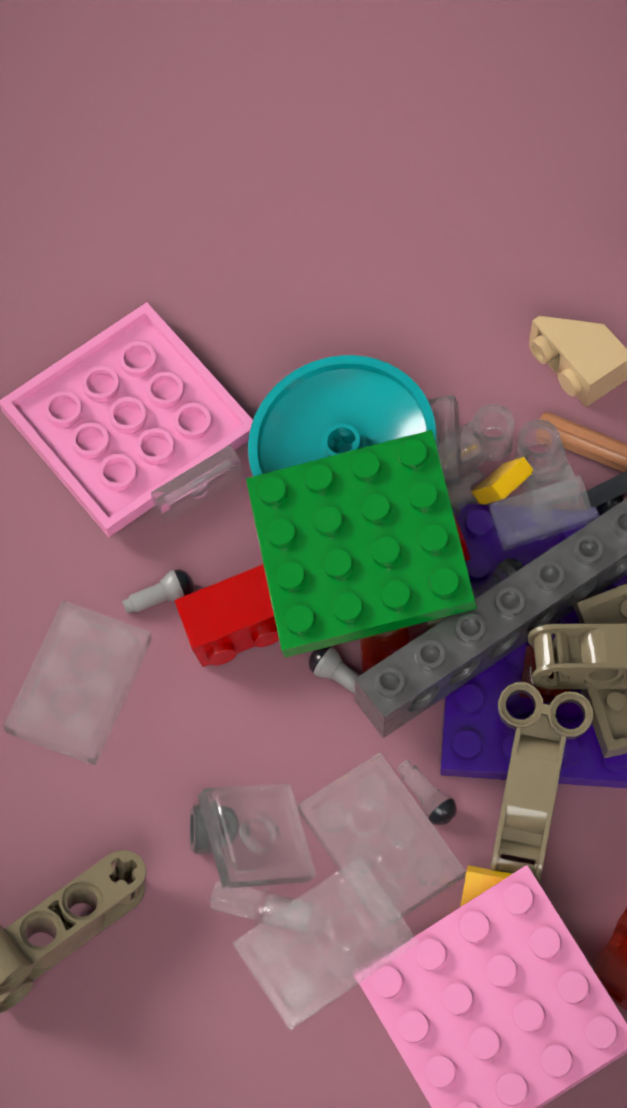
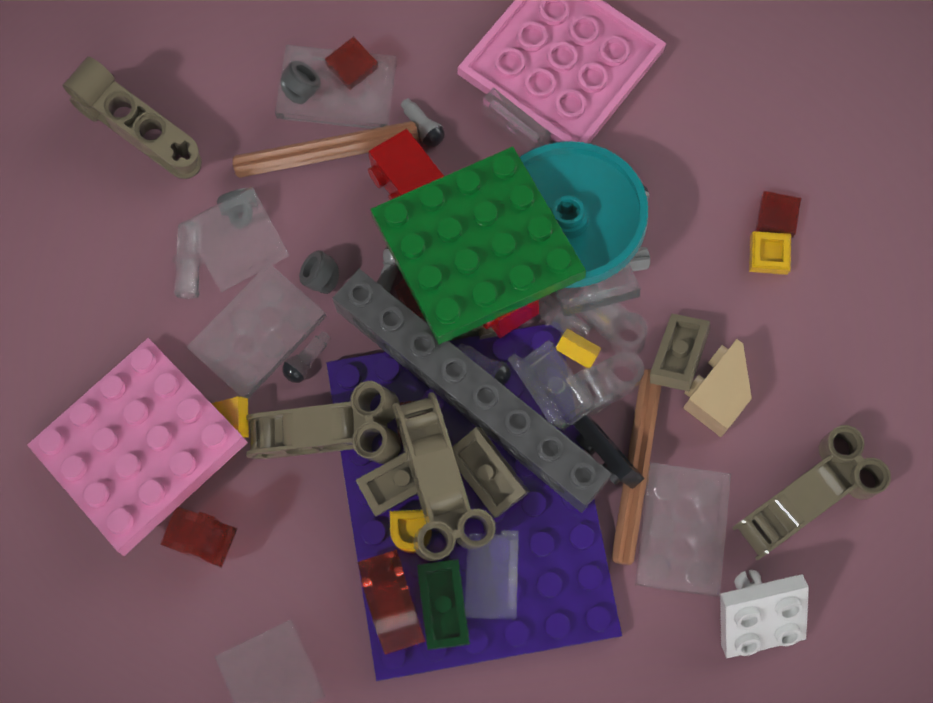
camera: 75 degrees right, 10 degrees up
(63, 646) = (351, 63): none -> clear red tile
(72, 705) = (299, 82): none -> dark grey tile
(159, 715) = (316, 150): none -> nougat axle
(322, 752) = (319, 272): none -> dark grey tile
(325, 942) = (160, 307): clear plate -> none
(385, 251) = (778, 213): none -> clear red tile
(429, 271) = (770, 252): none -> yellow tile
(528, 384) = (680, 352): none -> dark tan plate

